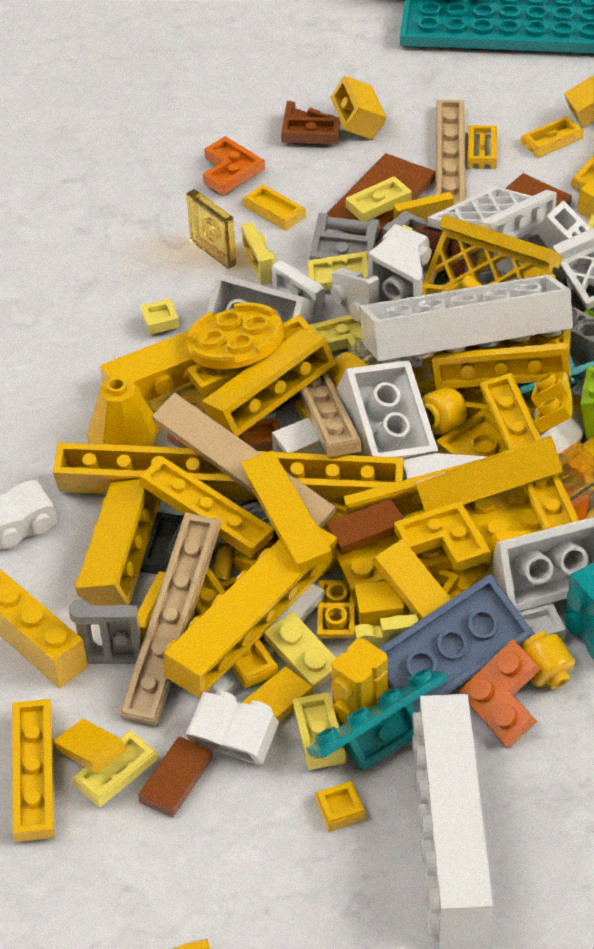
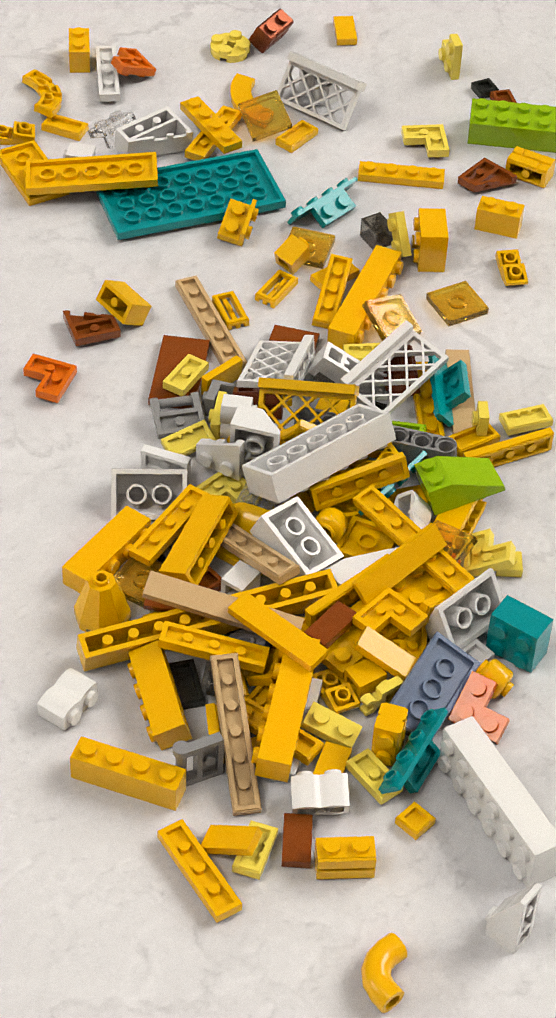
camera: 30 degrees left, 0 degrees up
(159, 316) = (74, 514): light yellow plate -> none
(211, 228) = (76, 434): clear yellow tile -> none
(214, 819) = (345, 857): none -> yellow brick
(235, 336) = (155, 514): yellow tile -> none
(256, 252) = (117, 443): light yellow plate -> none
(274, 207) = (103, 402): yellow tile -> none
(545, 54) = (236, 222): none -> yellow bracket
(553, 400) = (409, 496): yellow slope -> none

